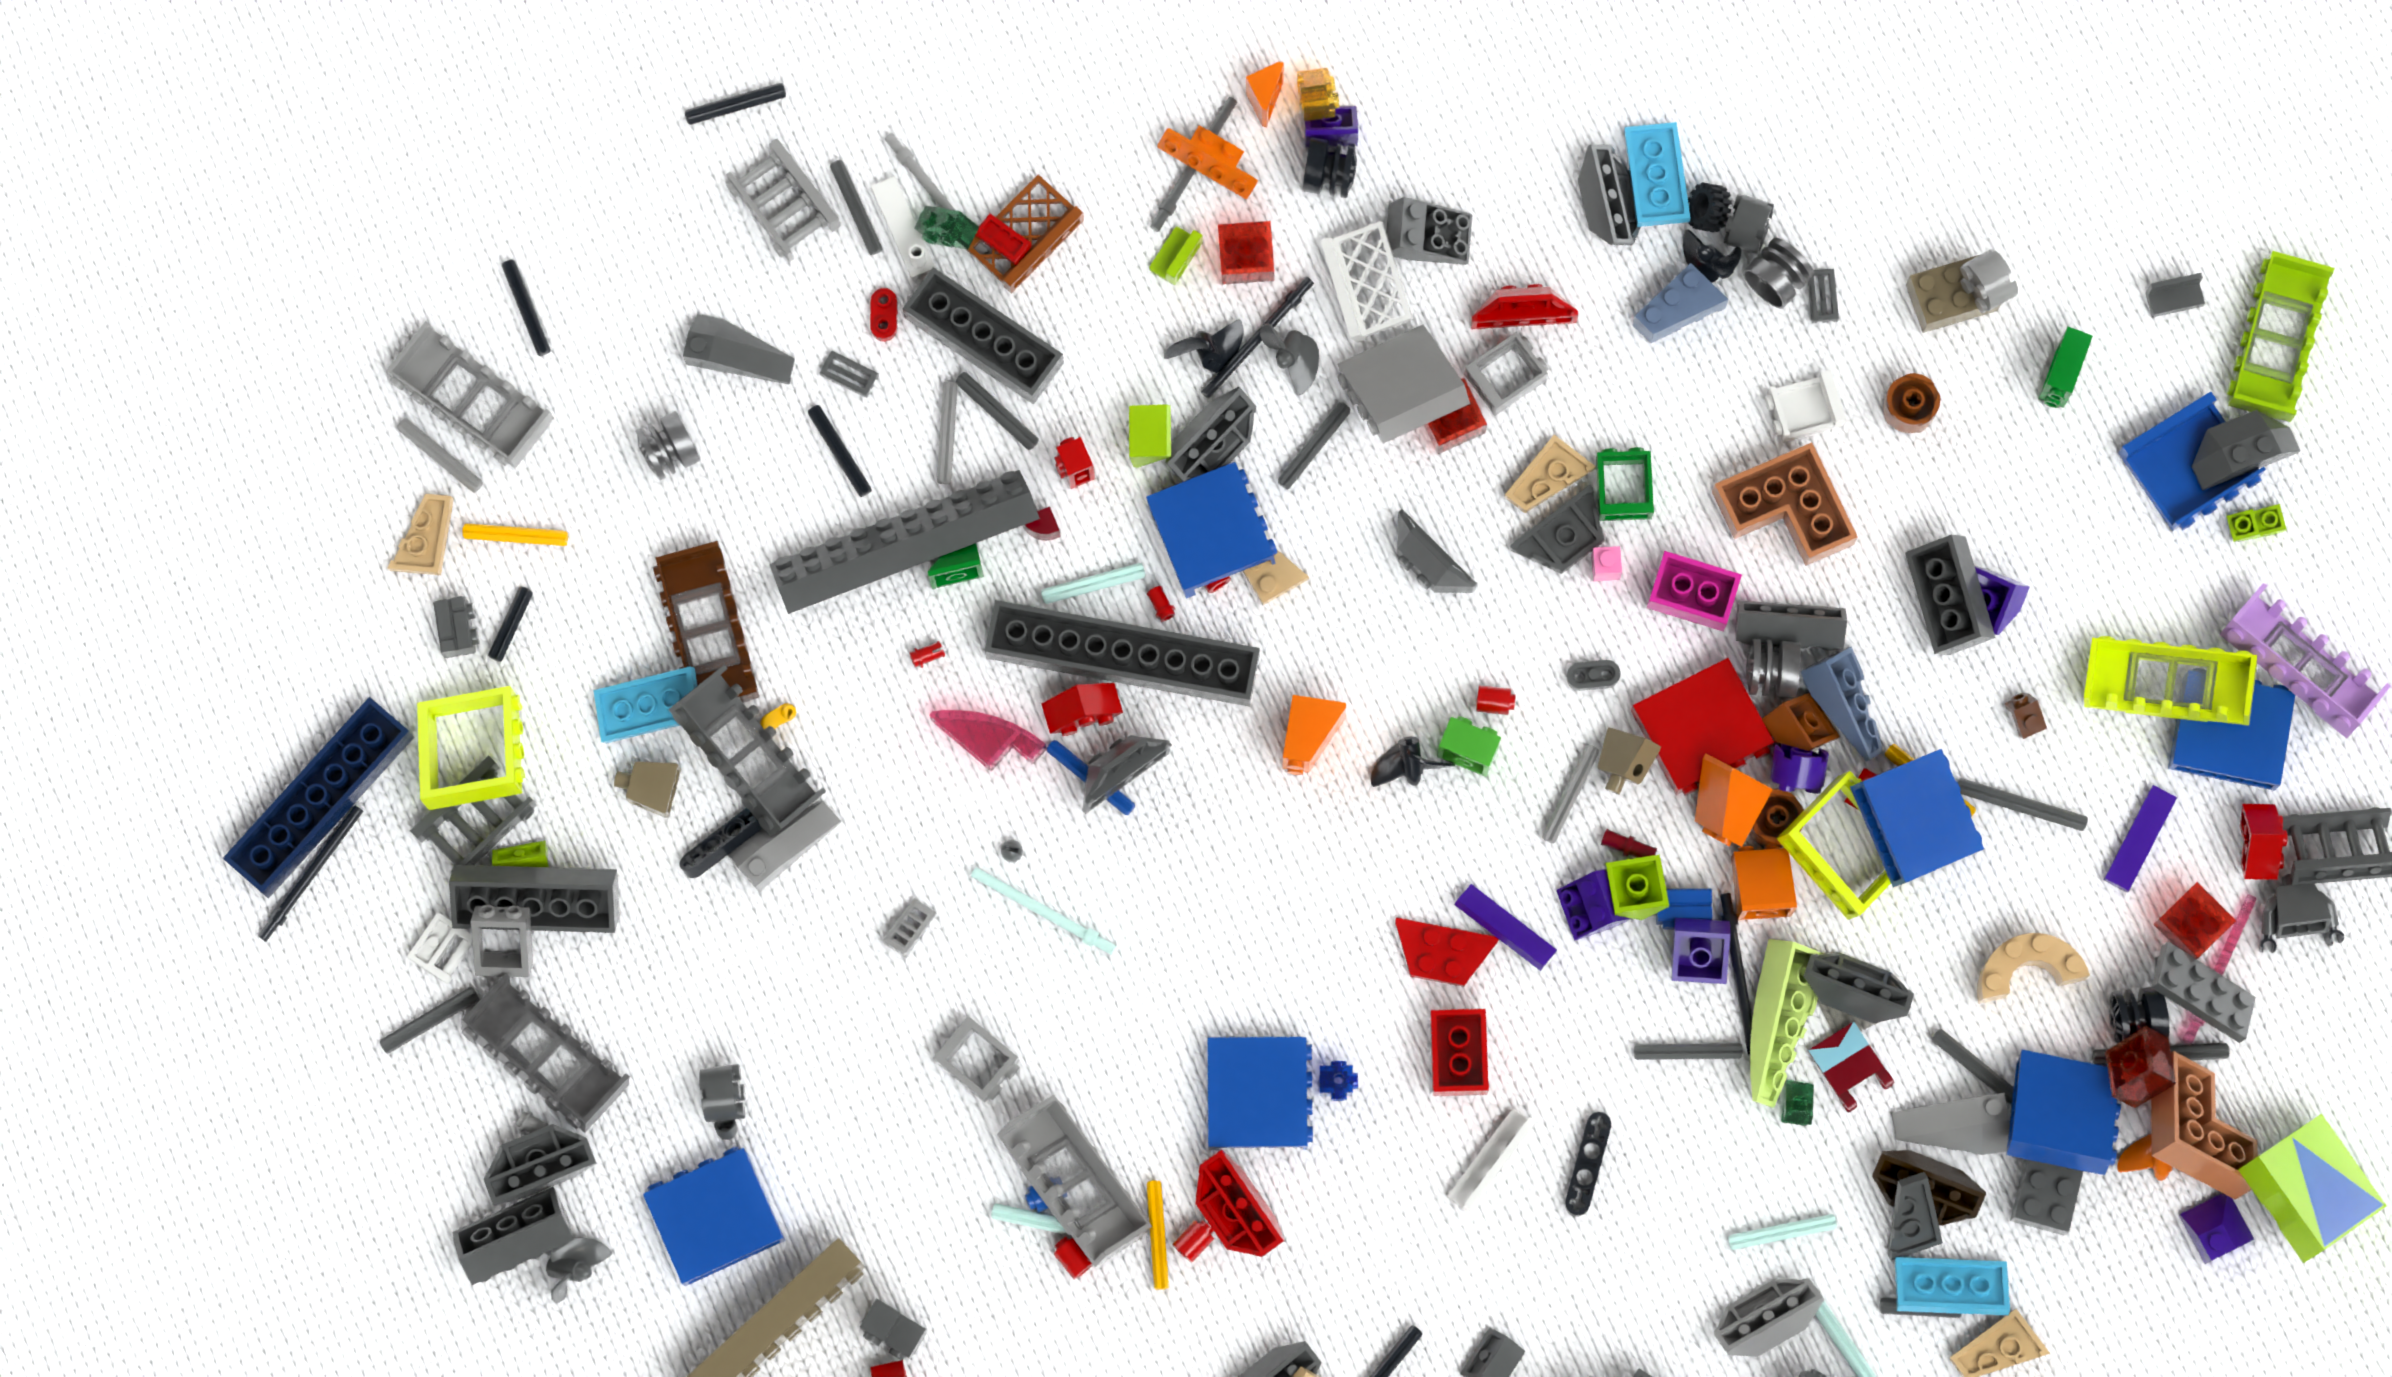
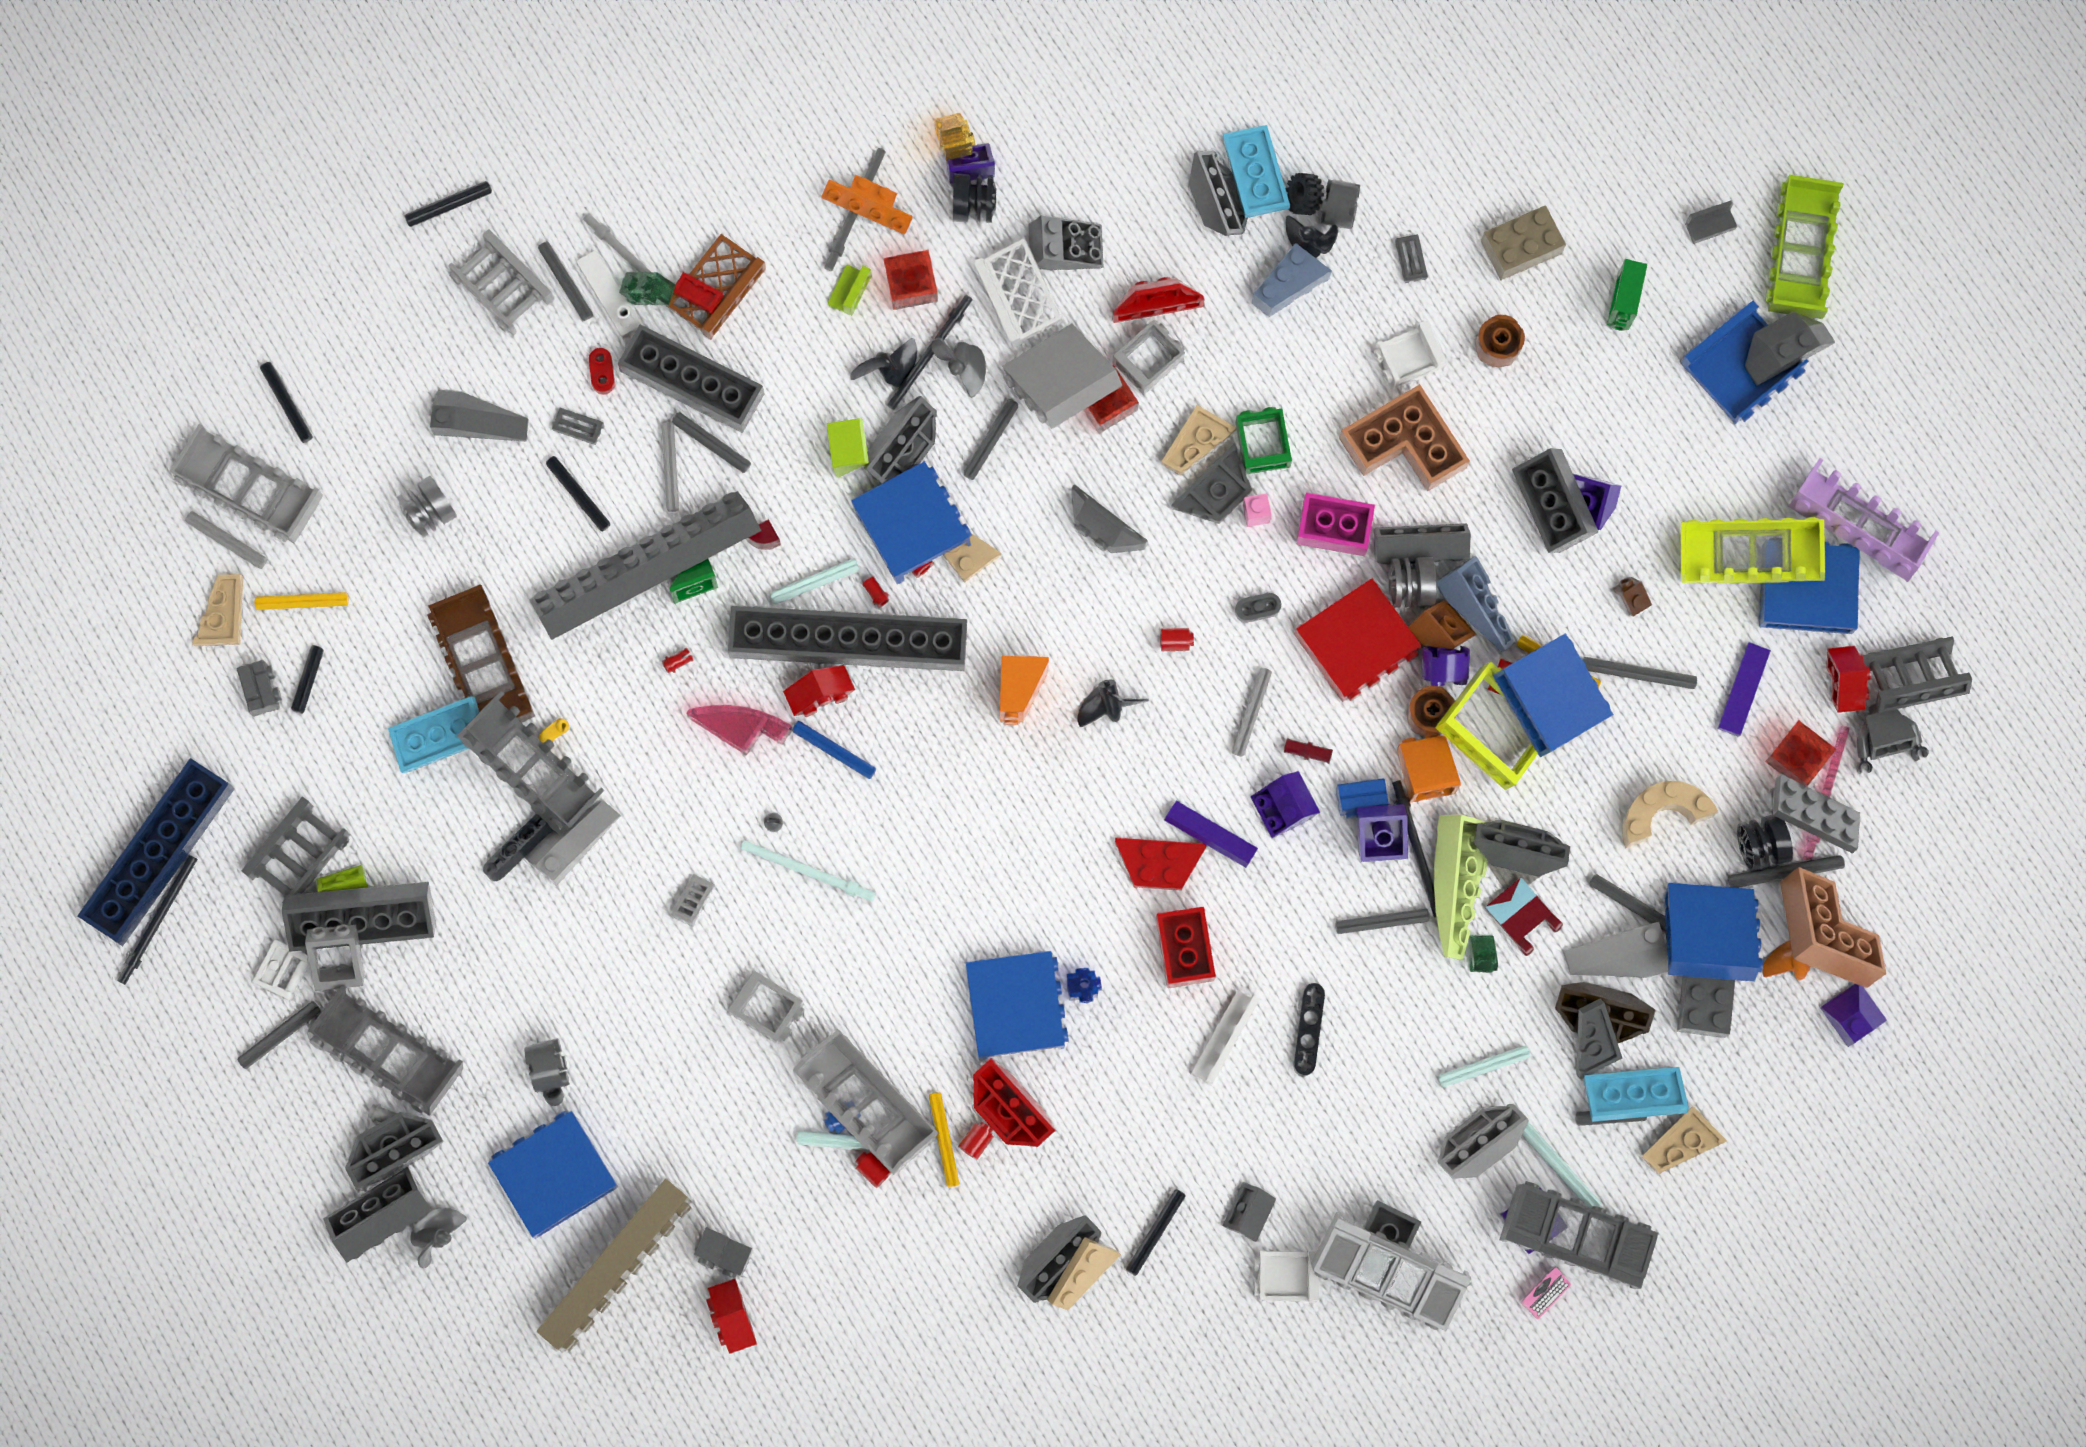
camera: 15 degrees left, 0 degrees up
(511, 784) = (325, 819): neon yellow window -> none
(650, 786) = (449, 805): dark tan torso -> none
(1074, 462) = (785, 478): red brick -> none
(1120, 766) = (858, 737): dark grey wedge -> none
(1263, 90) = (907, 138): orange slope -> none
(1469, 745) = (1159, 681): bright green brick -> none
(1626, 758) = (1296, 675): dark tan torso -> none
(1637, 887) = (1321, 784): lime slope -> none
(1728, 801) = (1389, 701): orange slope -> none
(1778, 273) = (1371, 243): flat silver wheel -> none
(1988, 280) = (1553, 227): light grey brick -> none
(2140, 1067) = (1772, 884): clear red brick -> none
(2256, 523) = (1806, 408): lime slope -> none
(2312, 1188) = (1932, 969): tile -> none

